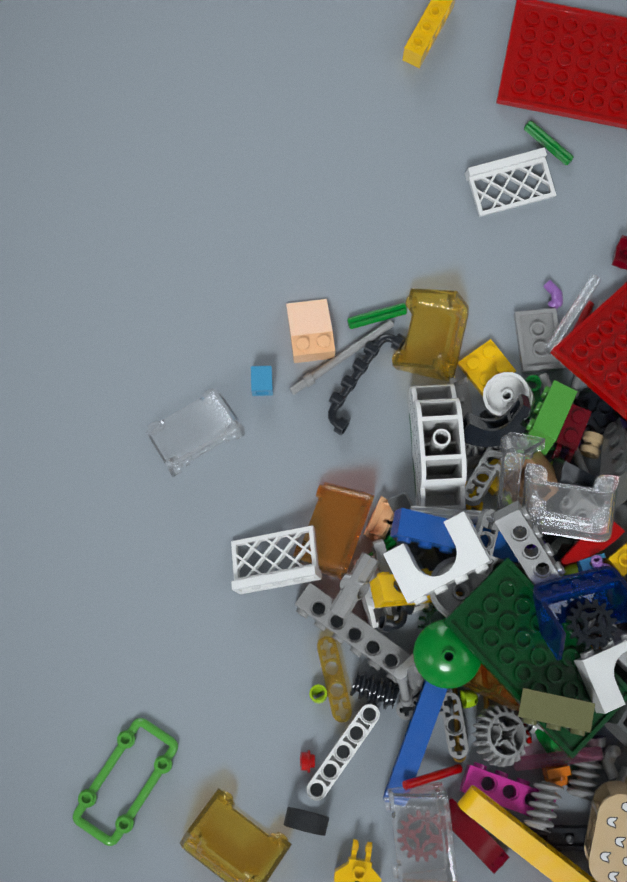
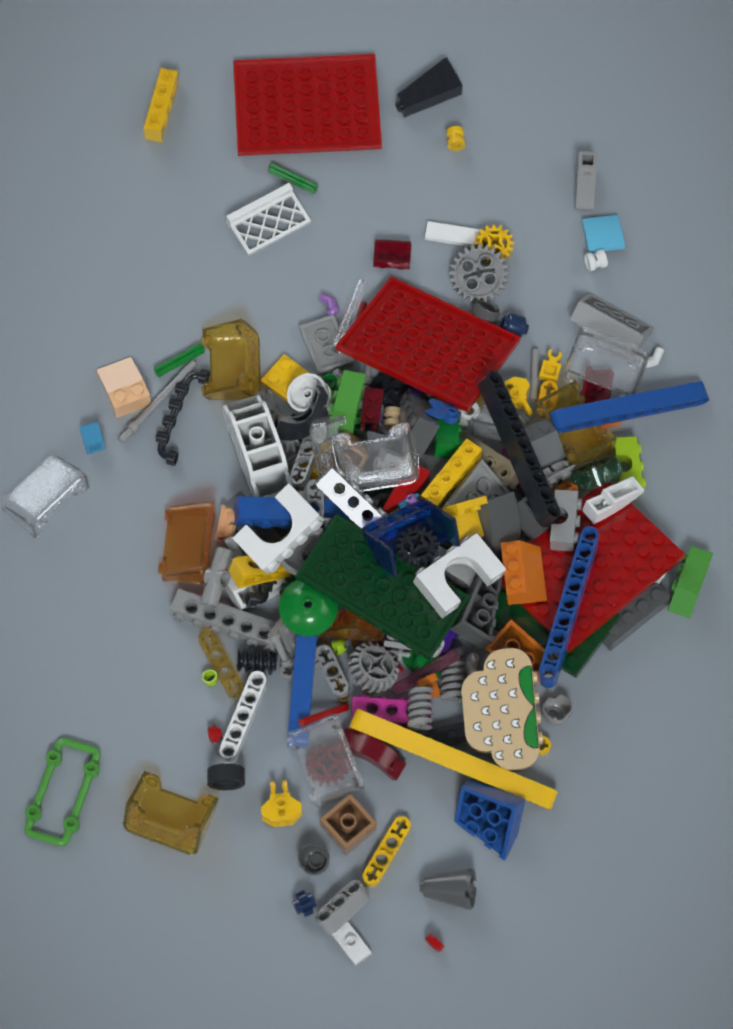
camera: 15 degrees left, 10 degrees down
(273, 578) = (148, 590): white fence -> none
(556, 711) = (406, 619): olive wedge -> none

